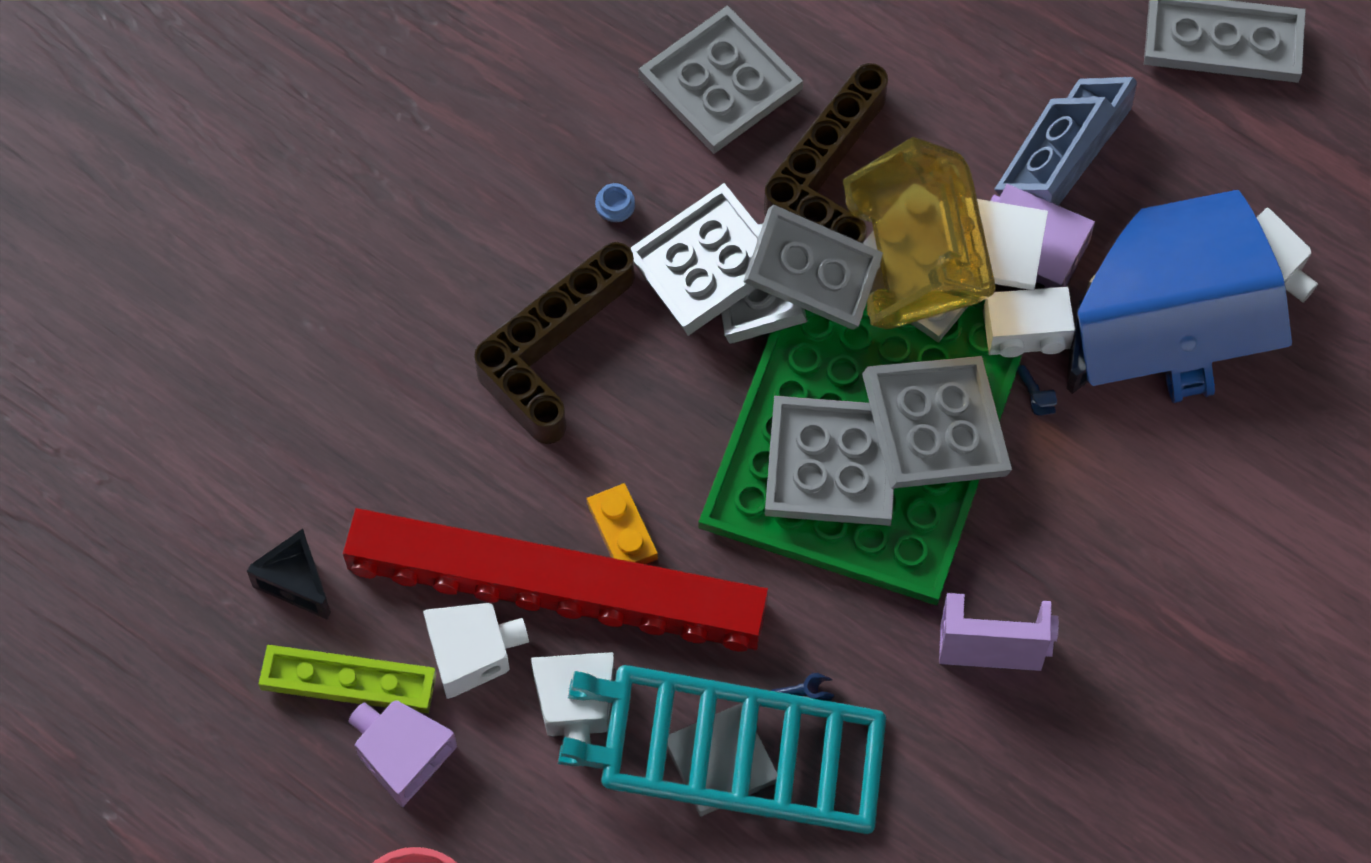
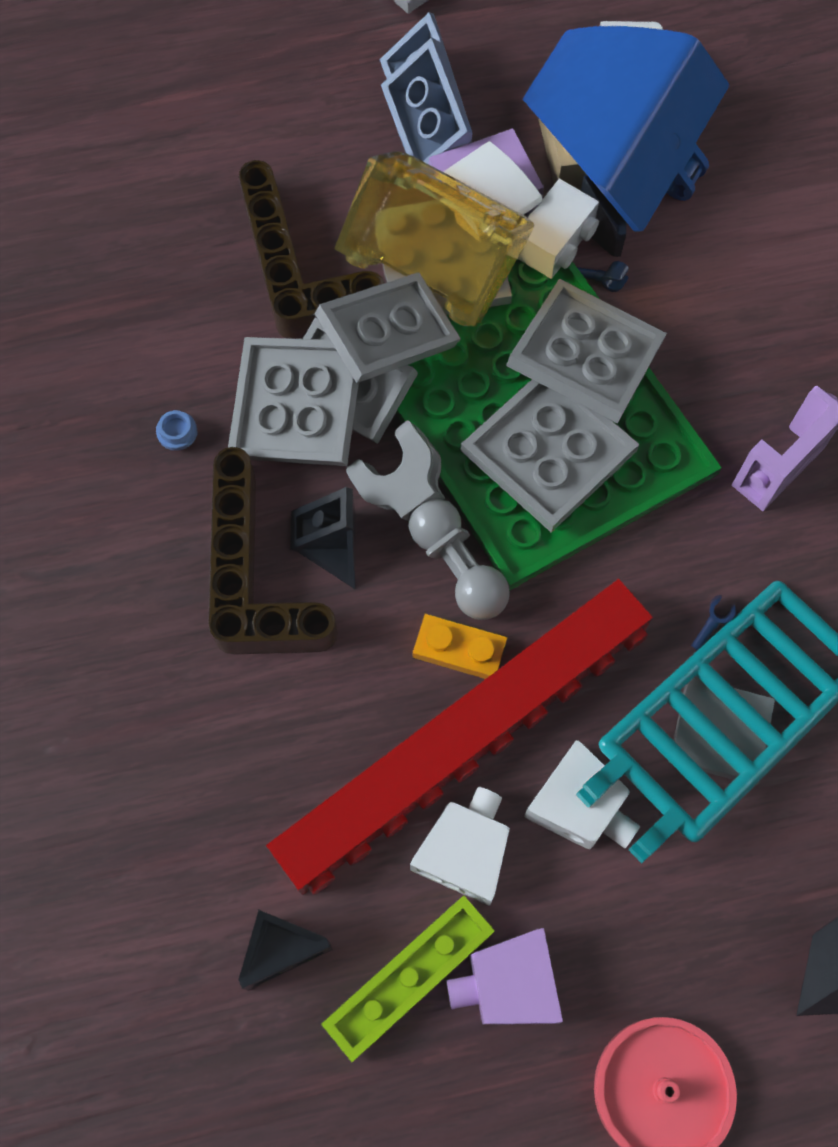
camera: 50 degrees left, 5 degrees up
(628, 370) = (326, 533): none -> black slope
(708, 402) = (433, 522): none -> light grey piece
(720, 79) = (147, 276): light grey plate -> none

